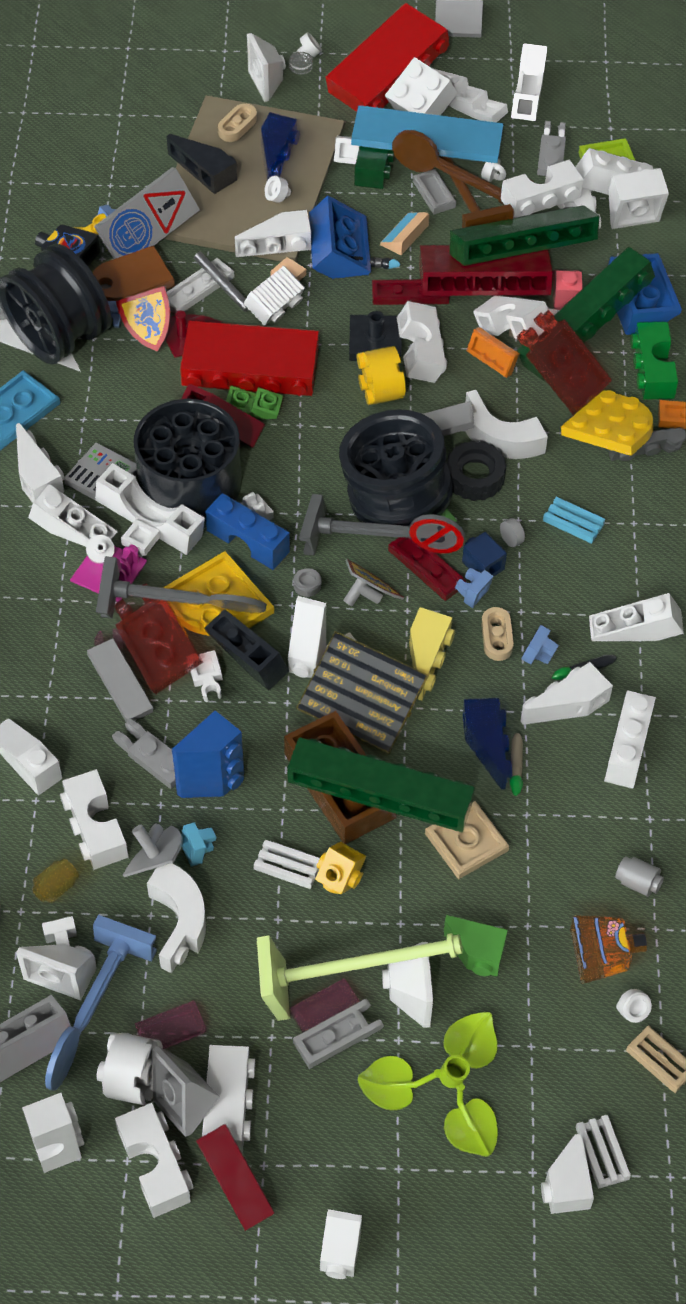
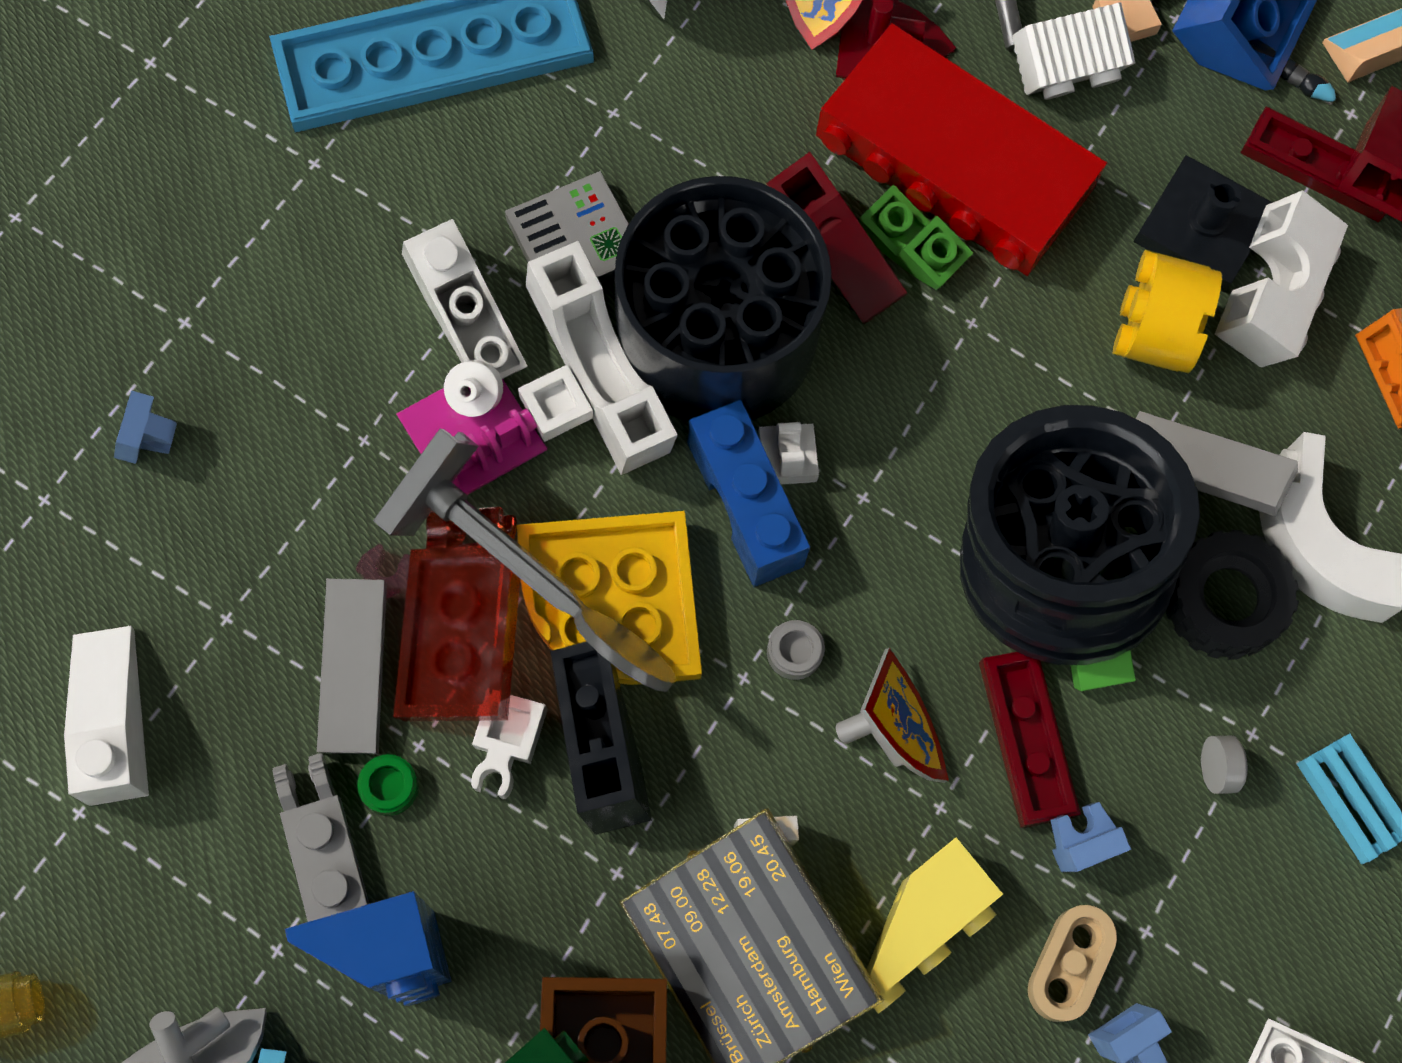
camera: 25 degrees right, 15 degrees up
(35, 466) = (464, 164): white slope -> none
(102, 841) = (137, 871): white arch -> none
(166, 719) = (388, 785): none -> green tile
(307, 637) = (706, 794): white slope -> none
(428, 531) = (1053, 688): dark grey piece -> none
(484, 554) = (1141, 785): dark blue brick -> none

